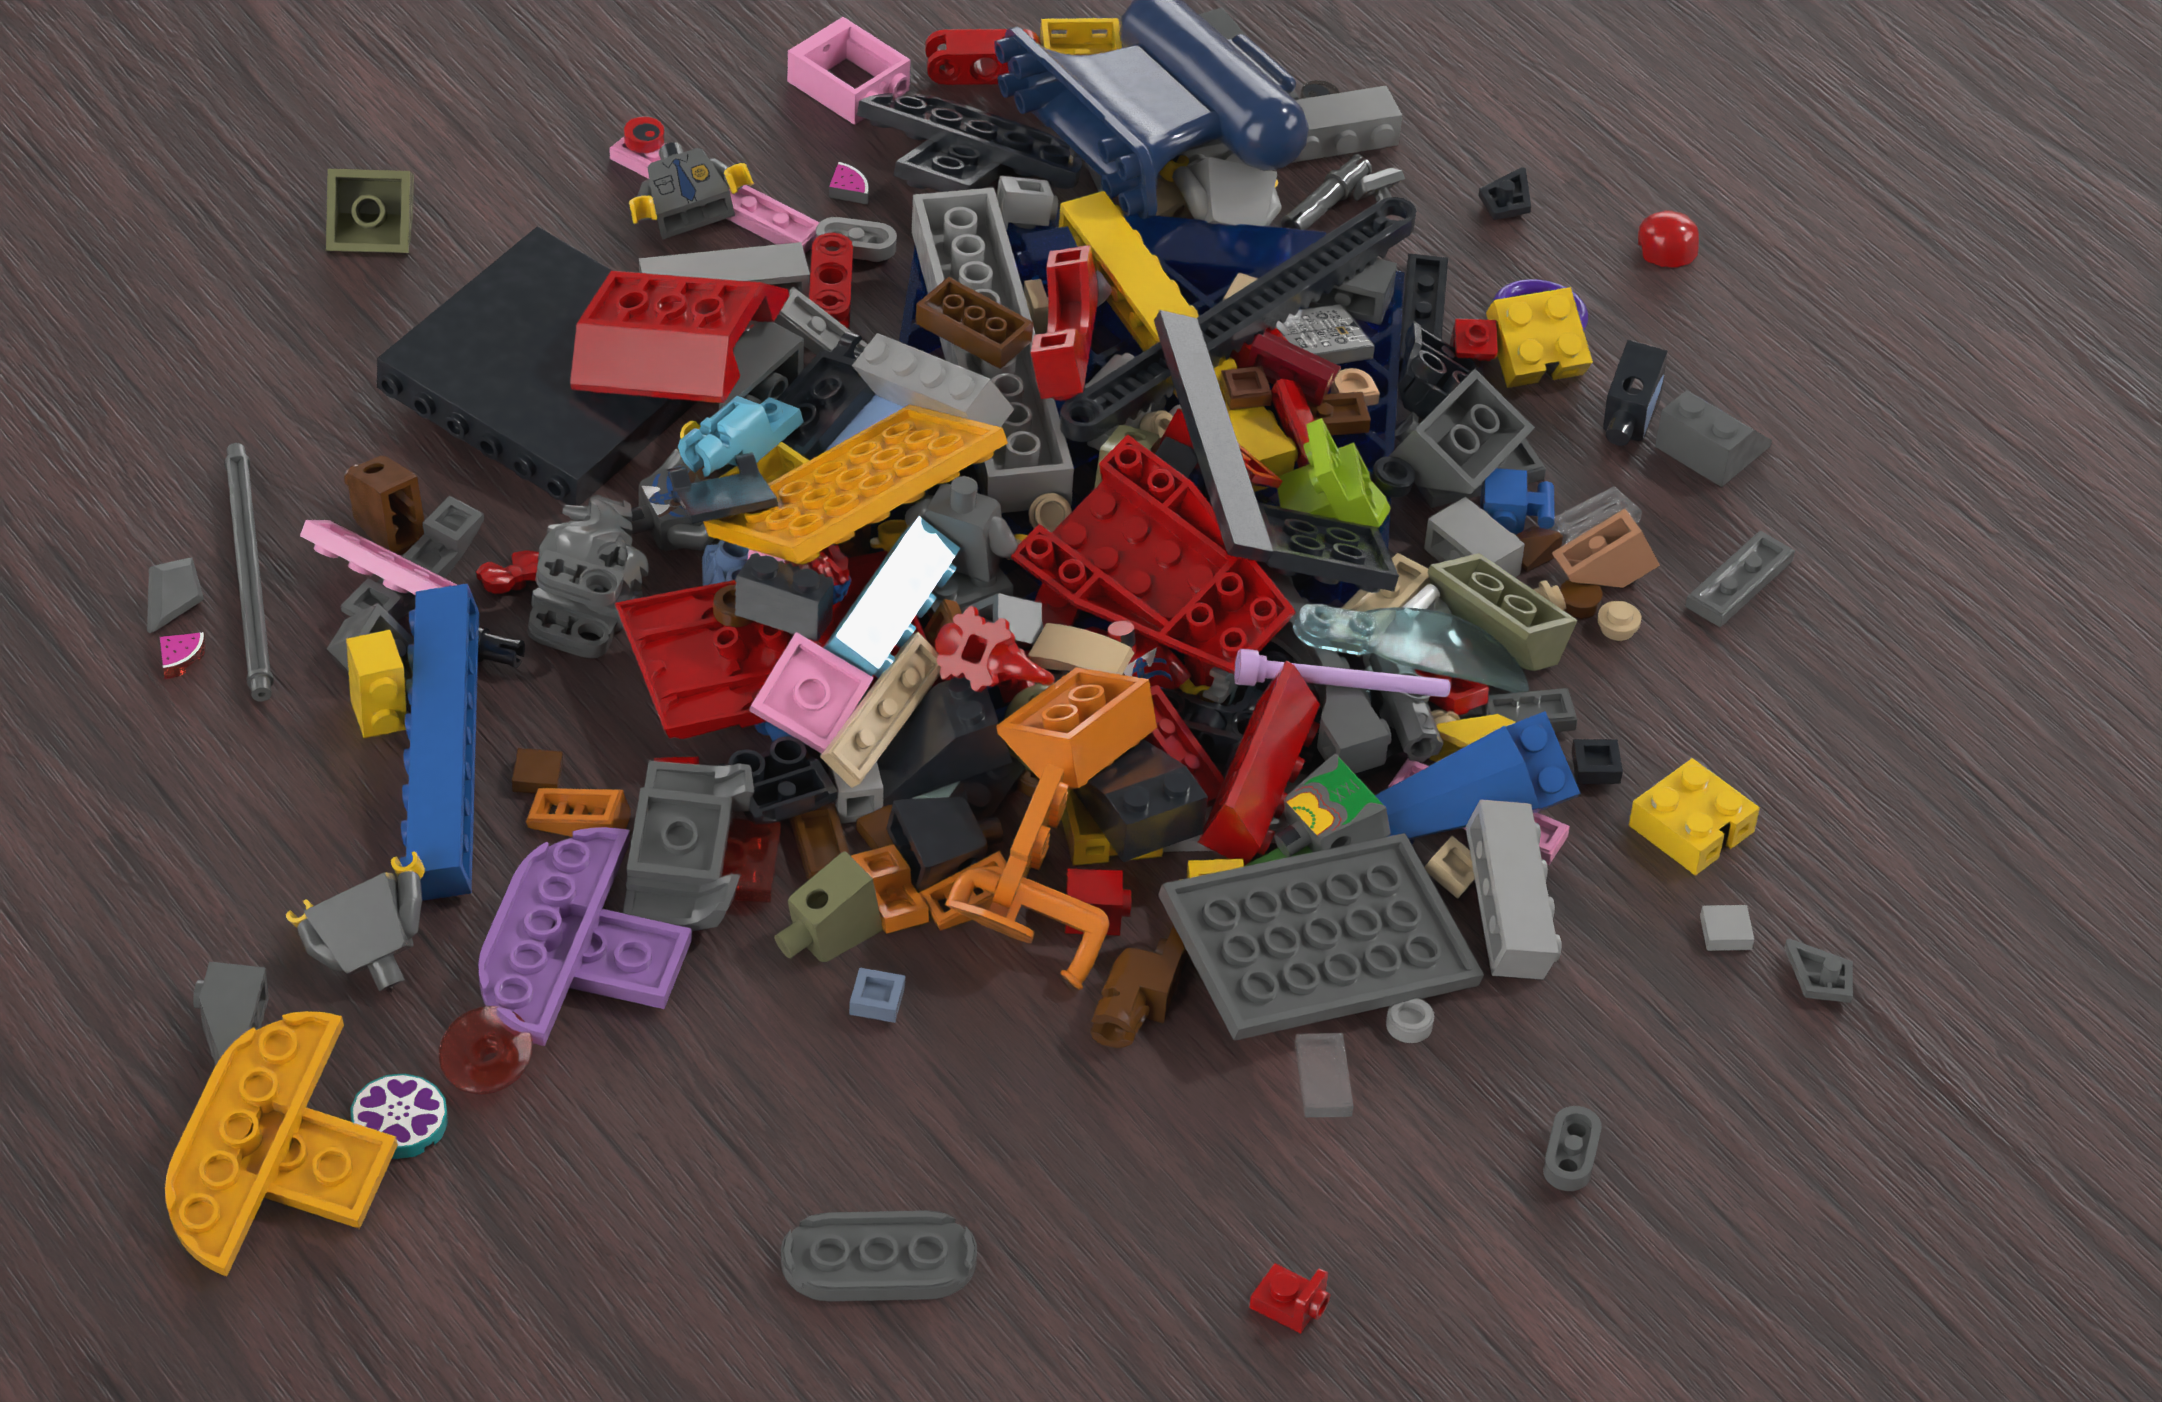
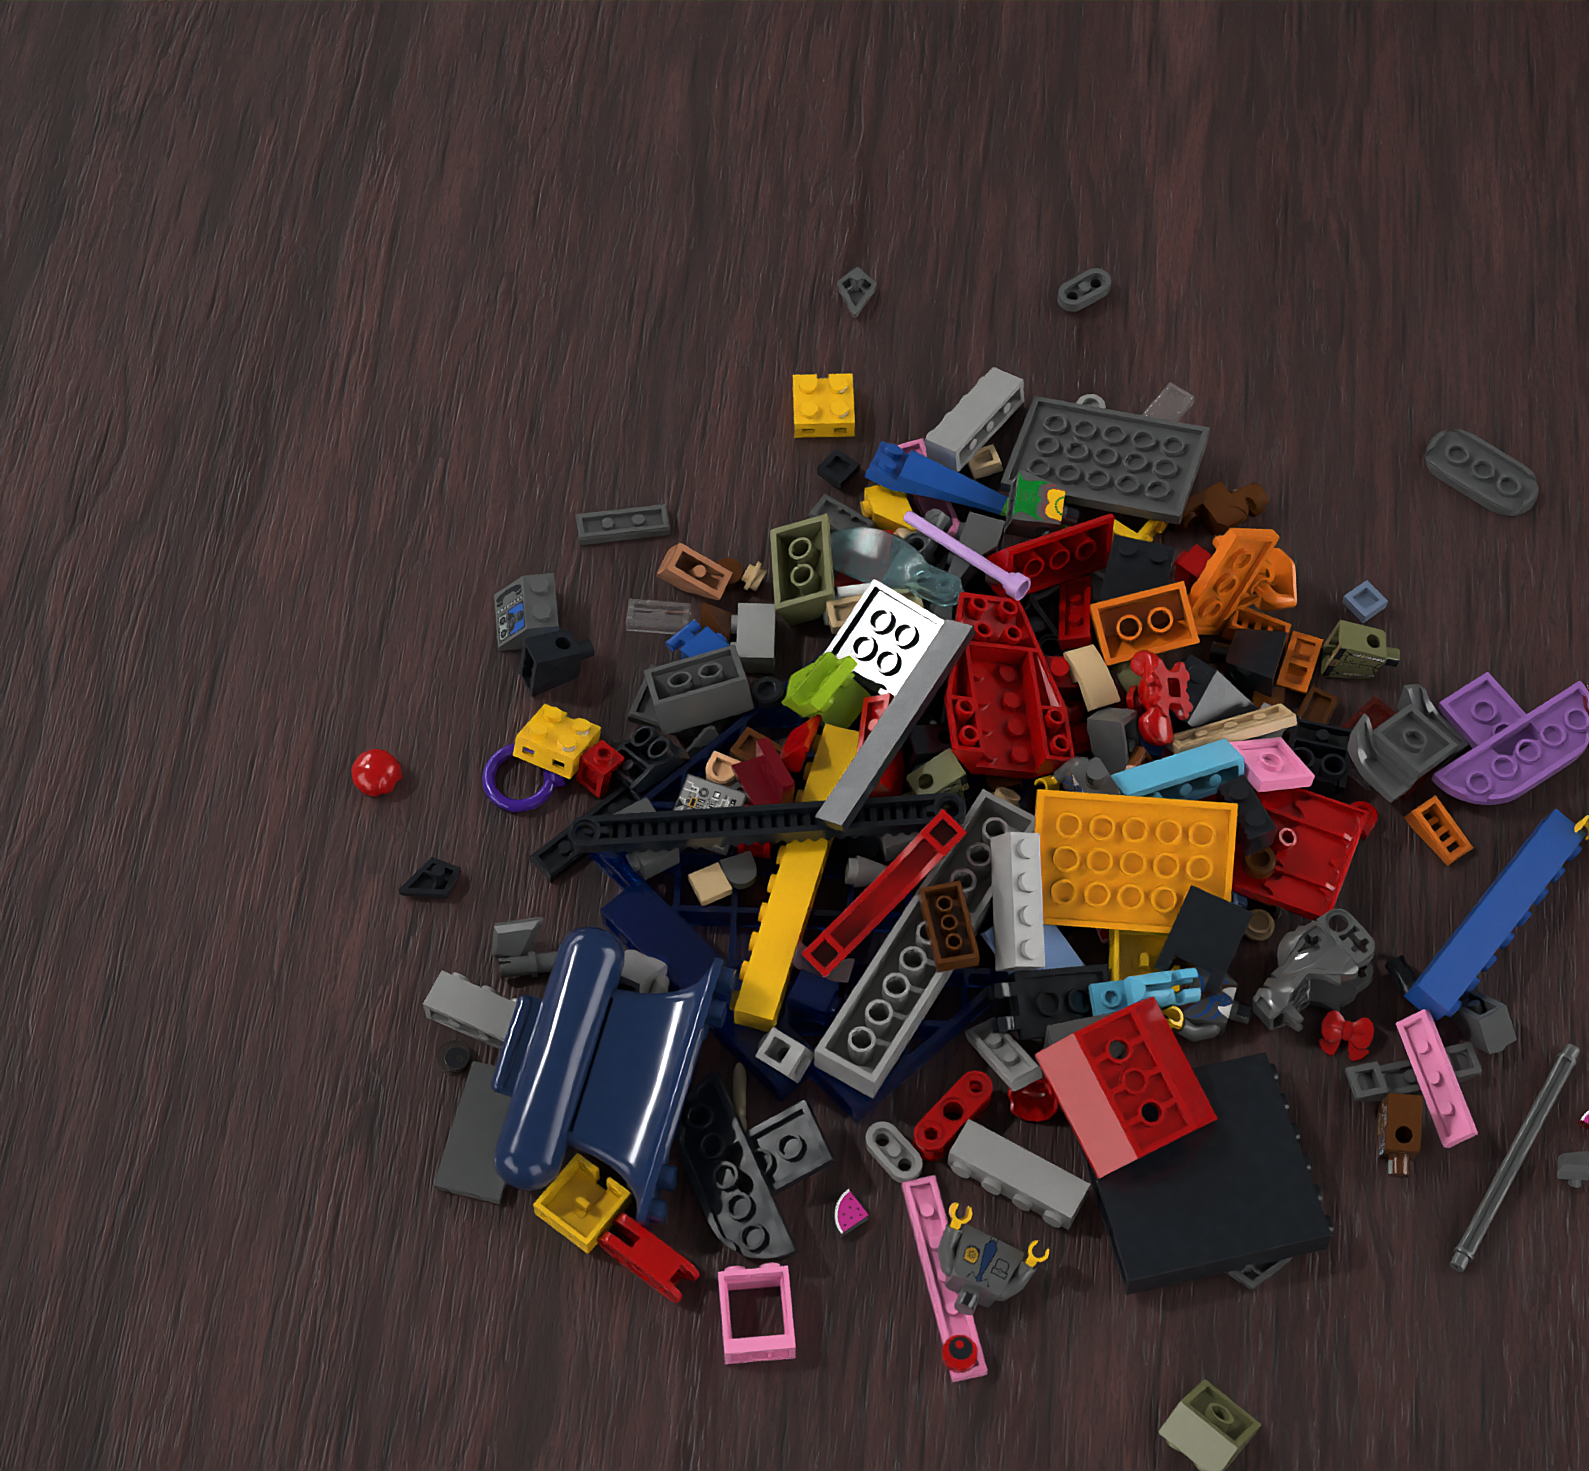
camera: 135 degrees left, 15 degrees up
(376, 683) = (1512, 976): yellow brick -> none
(536, 770) = (1440, 878): reddish brown tile -> none
(1037, 304) = (862, 960): tan plate -> none
(1245, 388) = (813, 781): copper tile -> none
(1291, 1297) = (1295, 315): red bracket -> none
(1619, 620) = (723, 543): tan plate -> none
(1727, 927) = (874, 344): light grey tile -> none

